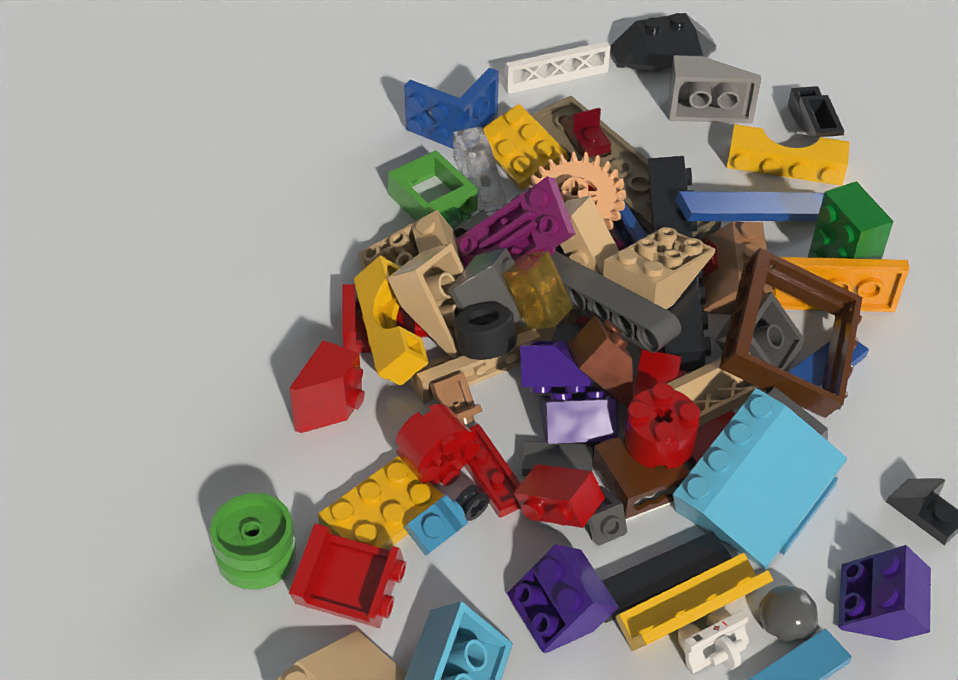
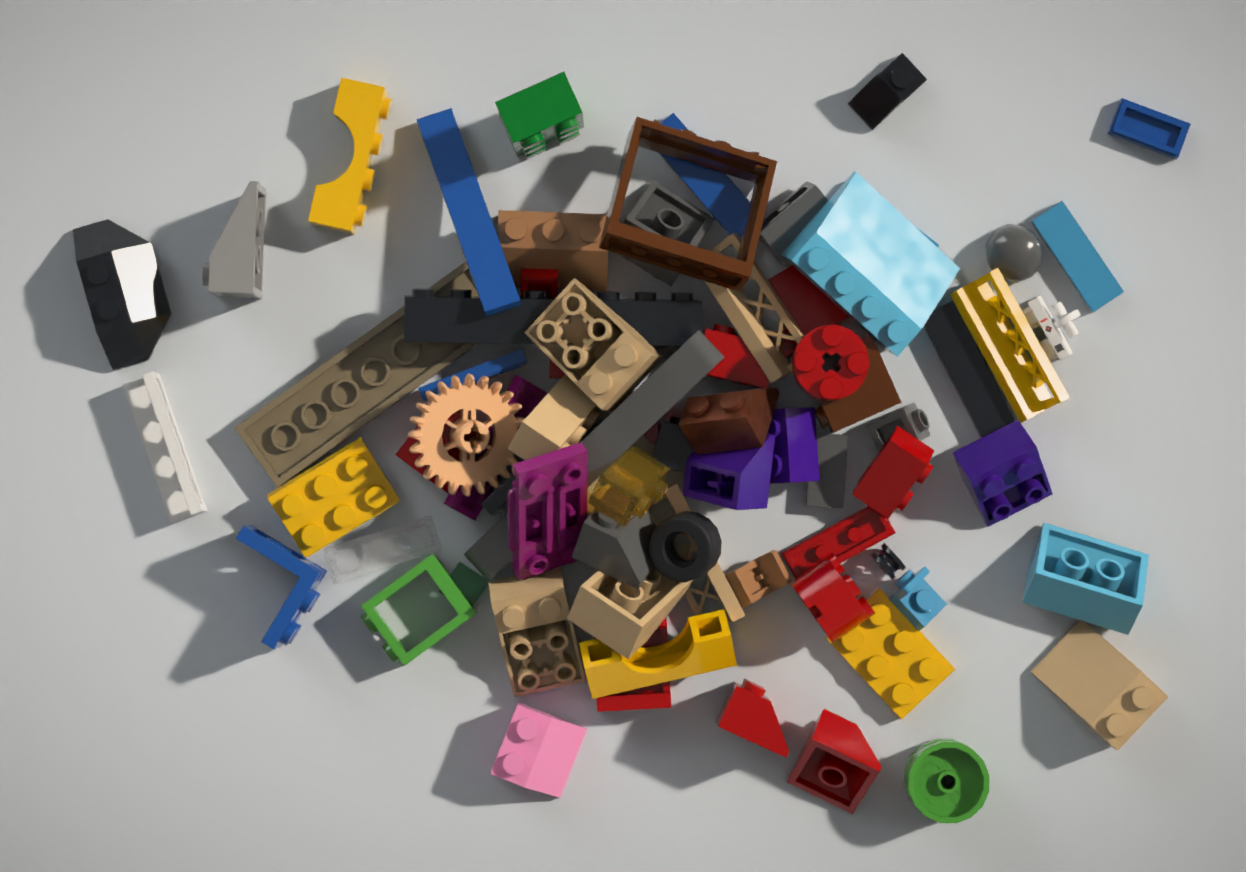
camera: 90 degrees left, 40 degrees up
(285, 454) = (835, 763): none -> red slope
(313, 257) = (538, 750): none -> bright pink slope
(347, 577) = (982, 682): red panel -> none
(586, 132) = (319, 412): dark red slope -> none
(814, 112) = (277, 110): black slope -> none
(875, 280) = (595, 135): light orange tile -> none
(886, 595) = (998, 157): dark purple slope -> none

